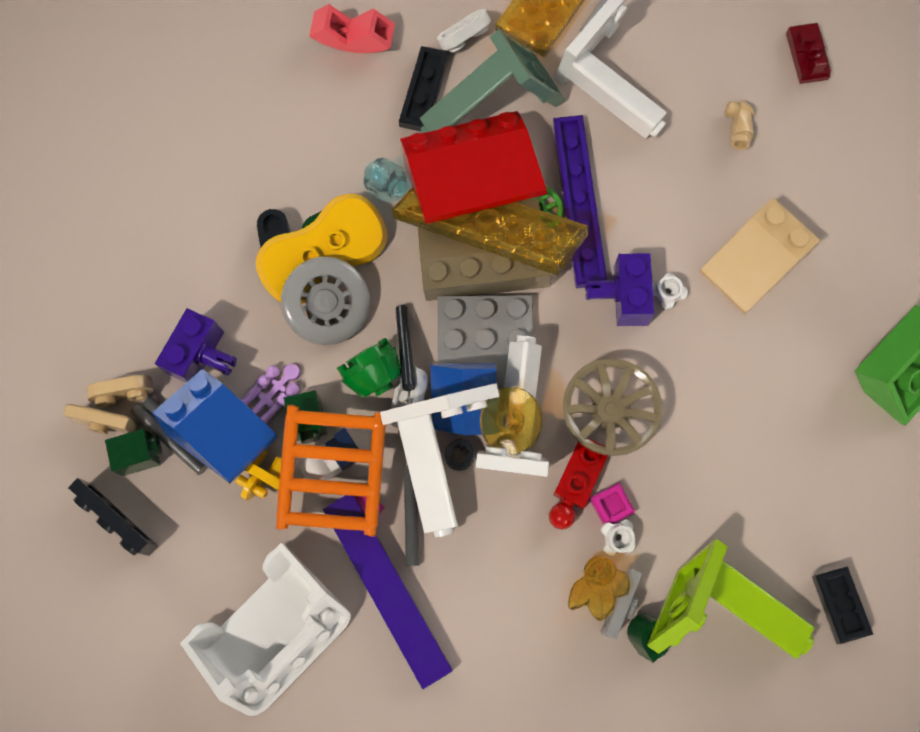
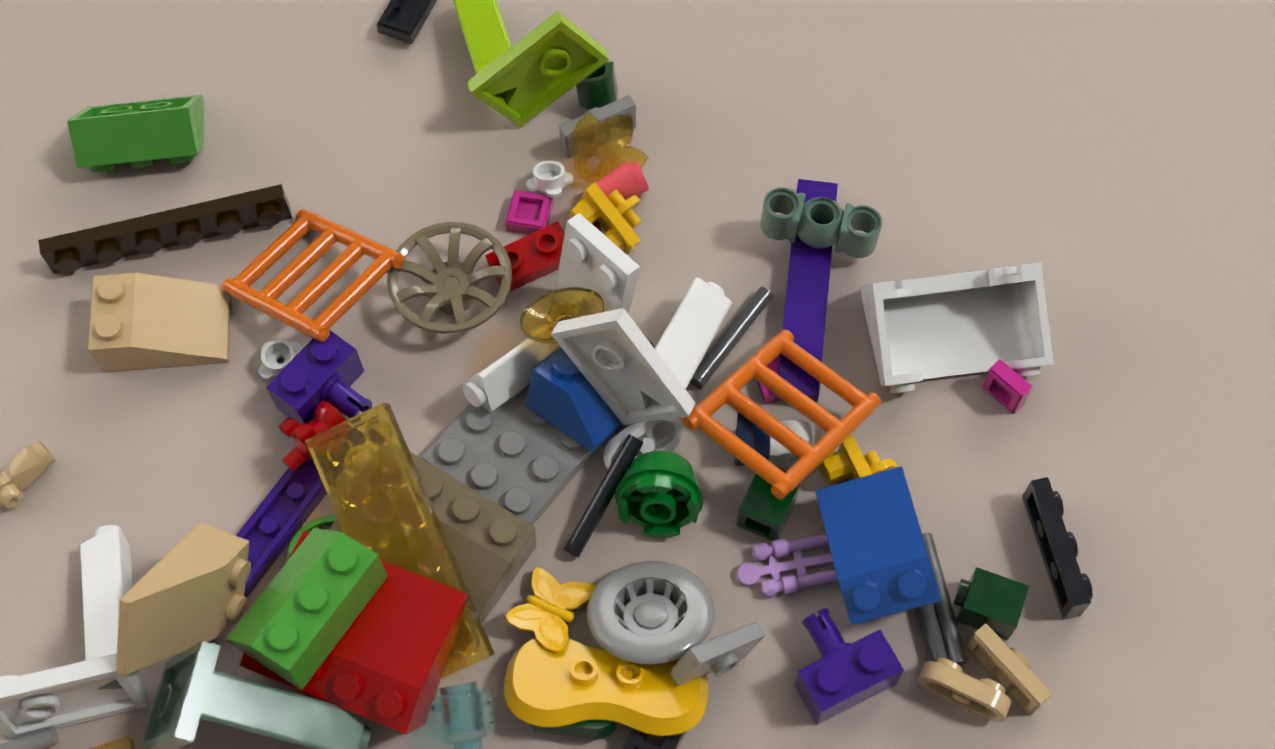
camera: 145 degrees left, 10 degrees down
(206, 609) = (1006, 386): none -> dark pink tile
(268, 301) = (717, 654): none -> light grey plate
(388, 267) = (549, 608): none -> yellow piece
(388, 636) = (838, 228): none -> sand green piece
(502, 145) = (309, 605): none -> bright green slope
(564, 530) = (597, 207): none -> yellow hips
(568, 570) = (626, 179): none -> coral cone
(569, 106) = (183, 599): none -> tan slope
(598, 255) = (324, 418): none -> red piece
(686, 384) = (293, 314): none -> orange bar
(810, 322) = (165, 229): none -> dark brown plate

